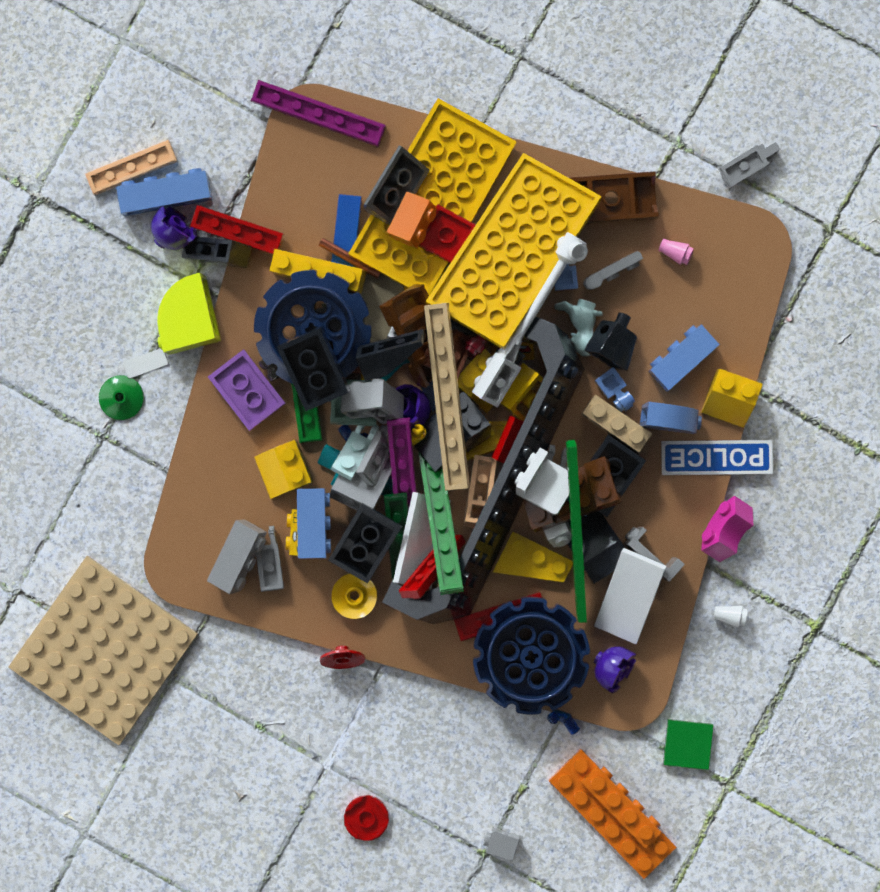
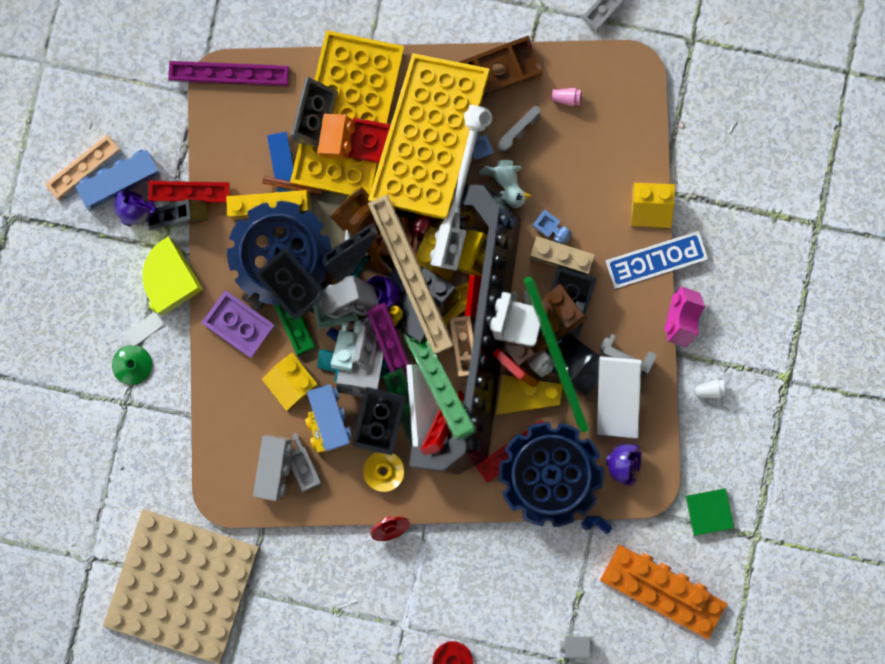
camera: 20 degrees left, 5 degrees down
(532, 538) = (521, 373): none -> red tile
(613, 342) = (538, 188): black torso -> none
(670, 418) = (605, 236): medium blue brick -> none
(683, 357) = (600, 183): medium blue brick -> none

